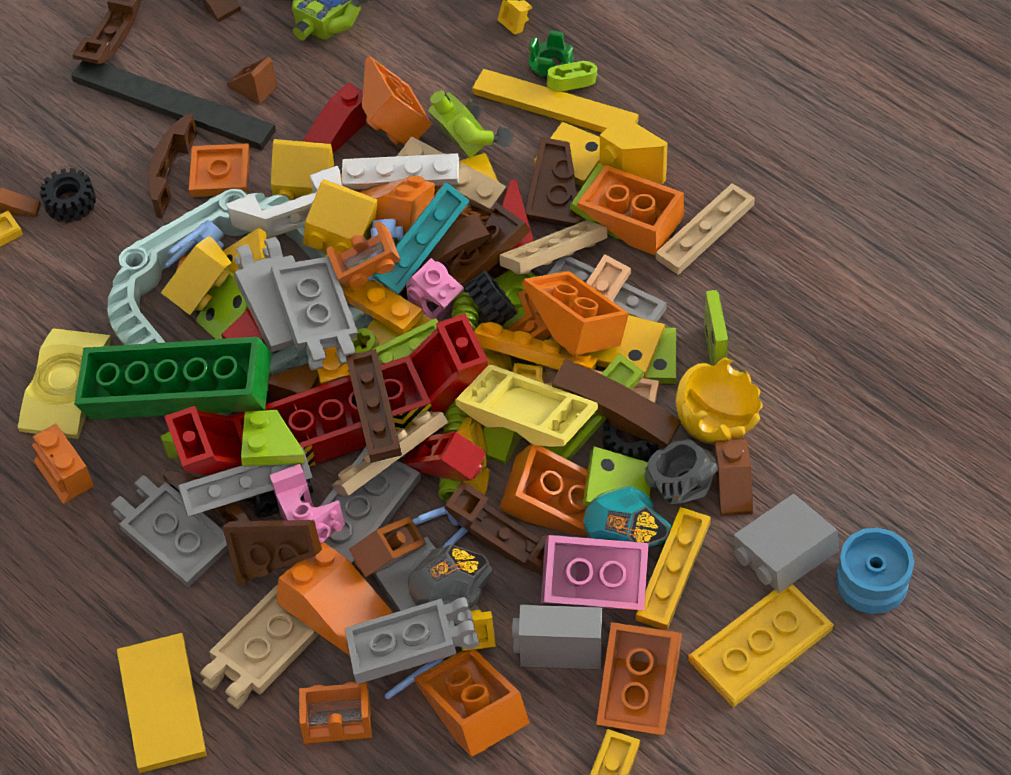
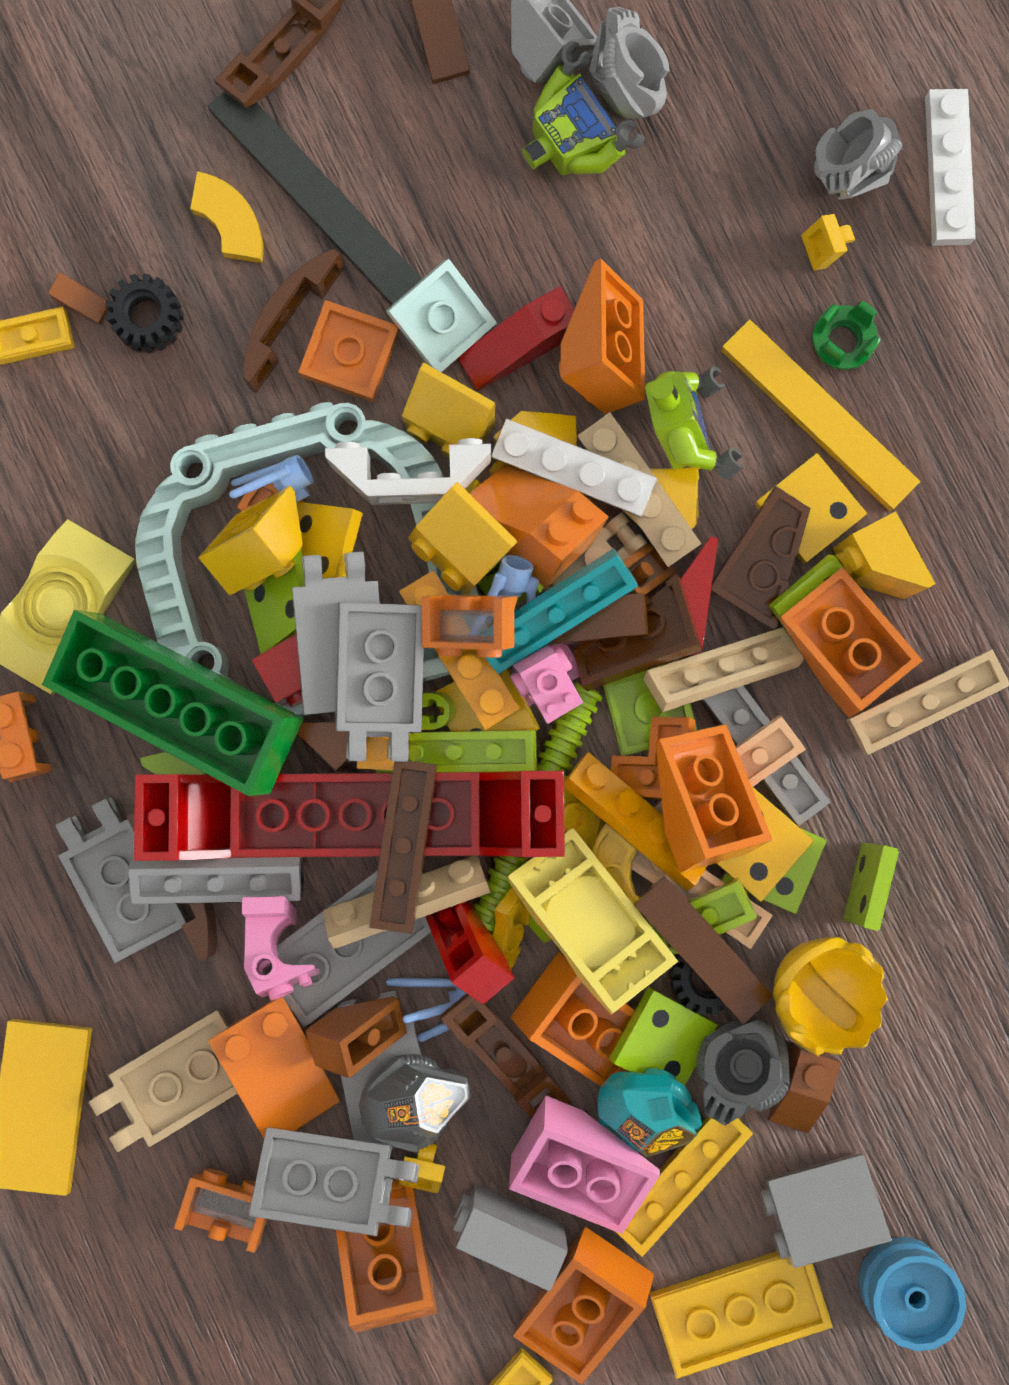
camera: 15 degrees right, 30 degrees up
(107, 127) = (230, 215): none -> yellow tile
(255, 80) = (442, 214): dark orange slope -> none
(264, 546) = (215, 984): reddish brown wing -> none
(268, 440) = (258, 844): lime wing -> none
(272, 121) = (441, 316): none -> light aqua plate
(490, 298) = (612, 725): black tyre -> none
(572, 76) = (859, 377): lime beam -> none

